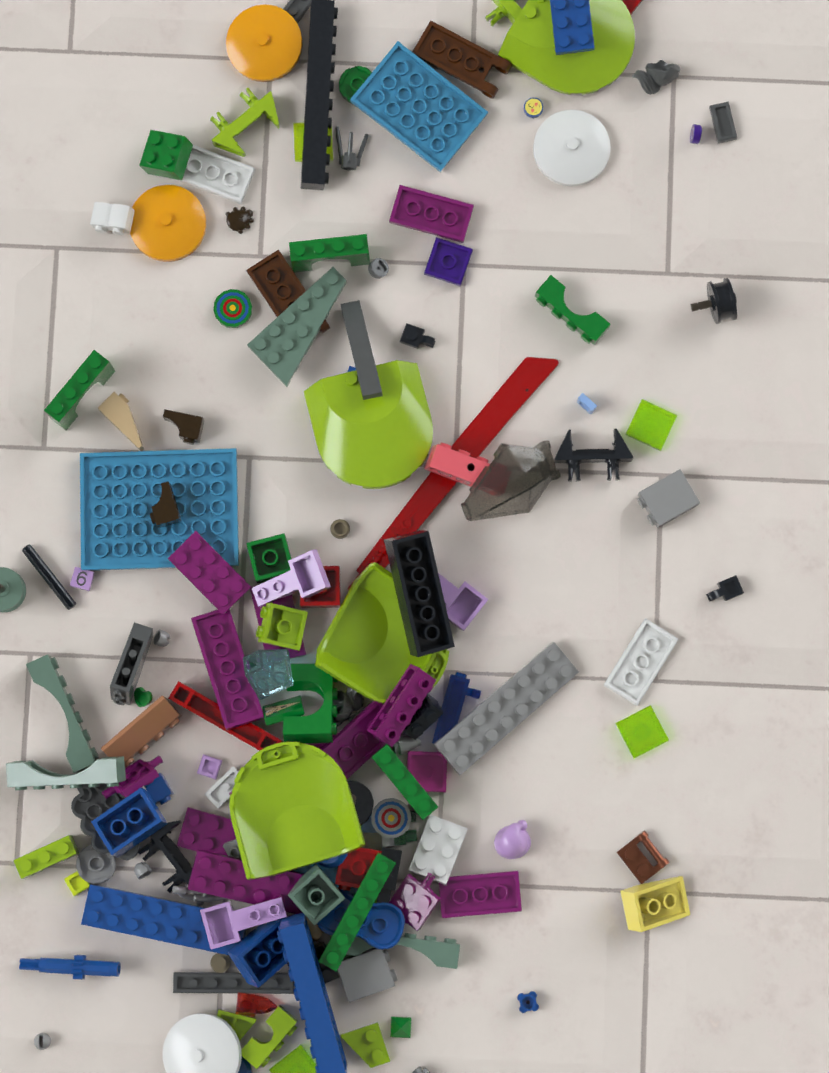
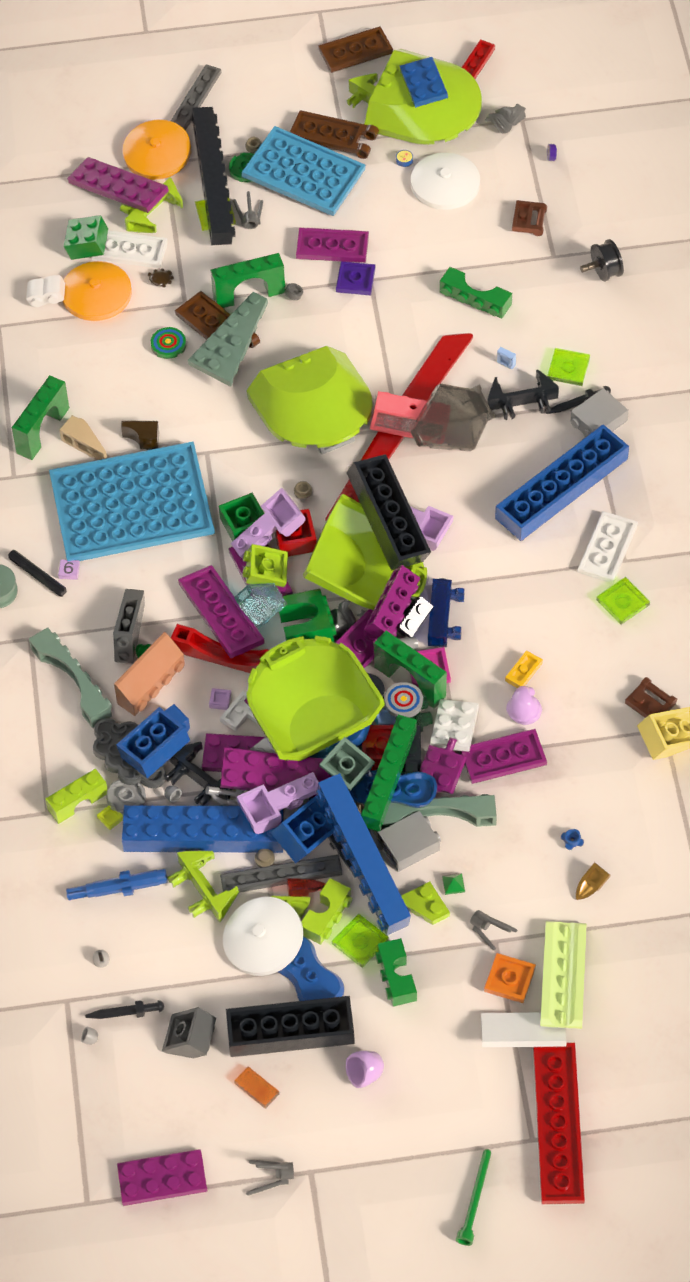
camera: 10 degrees left, 25 degrees down
(28, 773) = (119, 702): arch -> none
(137, 775) = (144, 713): magenta plate -> none
(159, 1001) = (191, 863): none -> lime hose
(161, 638) = (153, 602): light grey hinge -> none
(166, 509) = (138, 494): dark brown arch -> none
(209, 572) = (188, 538): magenta plate -> none
(212, 87) = (118, 184): none -> magenta plate
(276, 711) = (277, 635): green tile -> none
(361, 350) = (293, 344): dark grey tile -> none
(371, 52) = (253, 144): none -> dark tan plate
(414, 336) = (339, 336): black plate -> none
(506, 708) = (491, 598): light grey plate -> none
(521, 797) = (523, 669): none -> yellow plate
(536, 1055) = (591, 881): none -> pearl gold plate
(610, 578) = (561, 482): none -> blue brick
(645, 217) = (523, 217): none -> copper plate
(664, 469) = (576, 401): none -> black sword
(723, 122) = (573, 142): dark grey tile -> none
(728, 589) = (672, 474): black plate -> none

